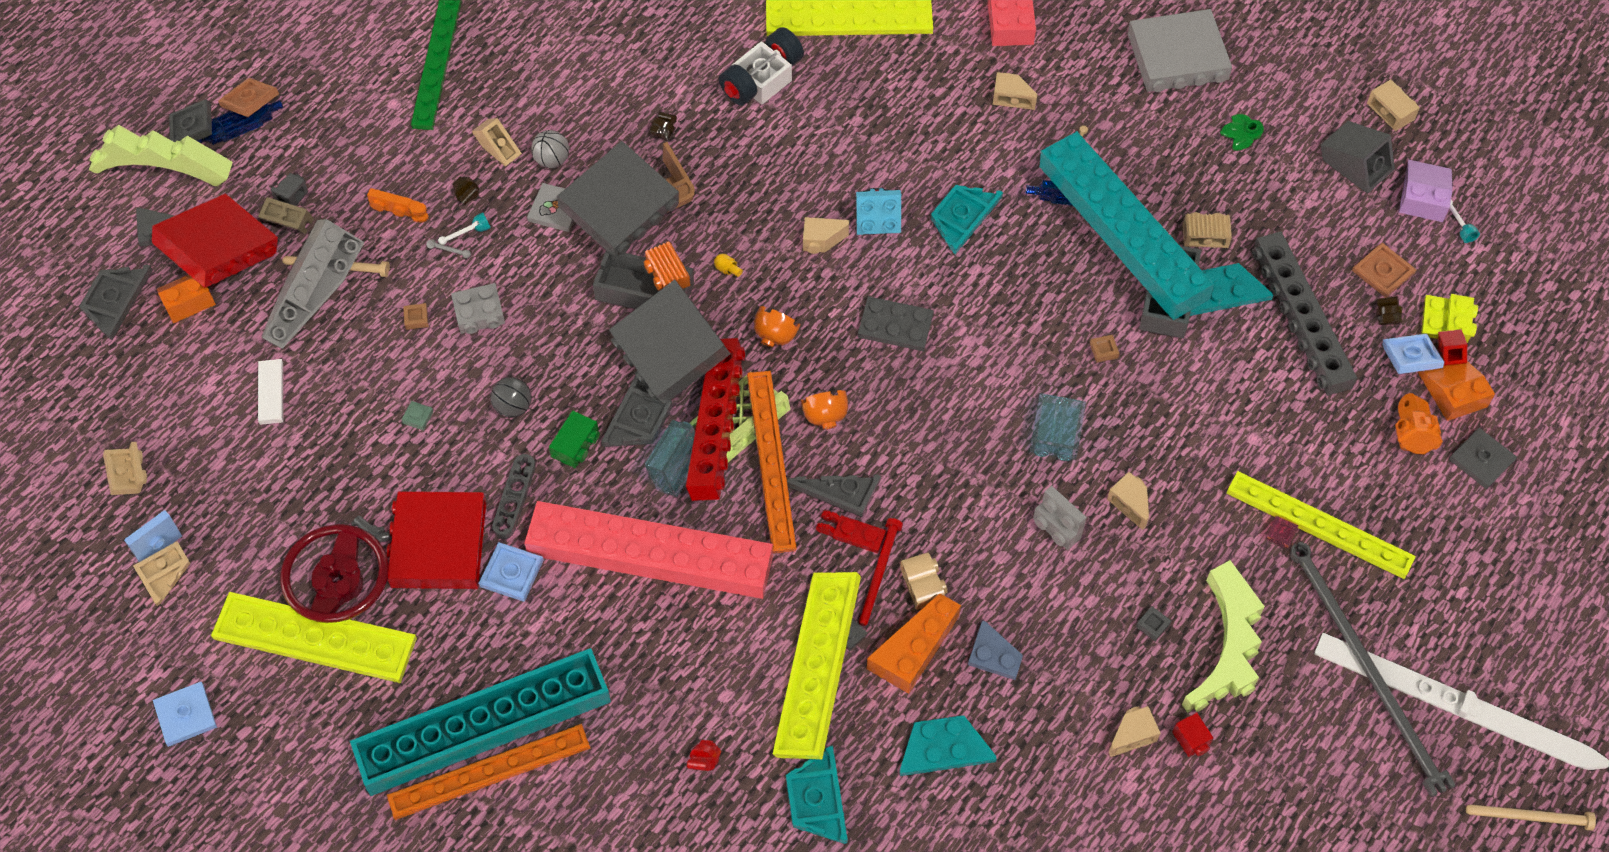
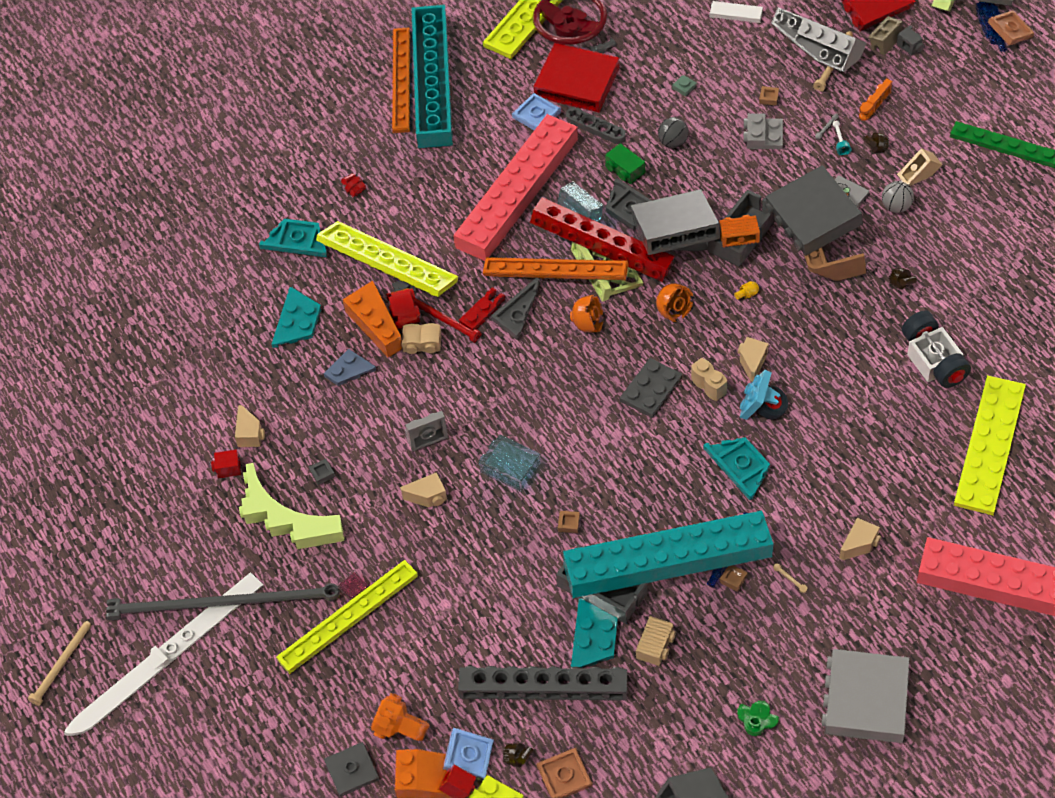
camera: 115 degrees right, 5 degrees down
(869, 265) = (710, 380): none -> tan brick
(893, 608) = (402, 307): none -> red brick

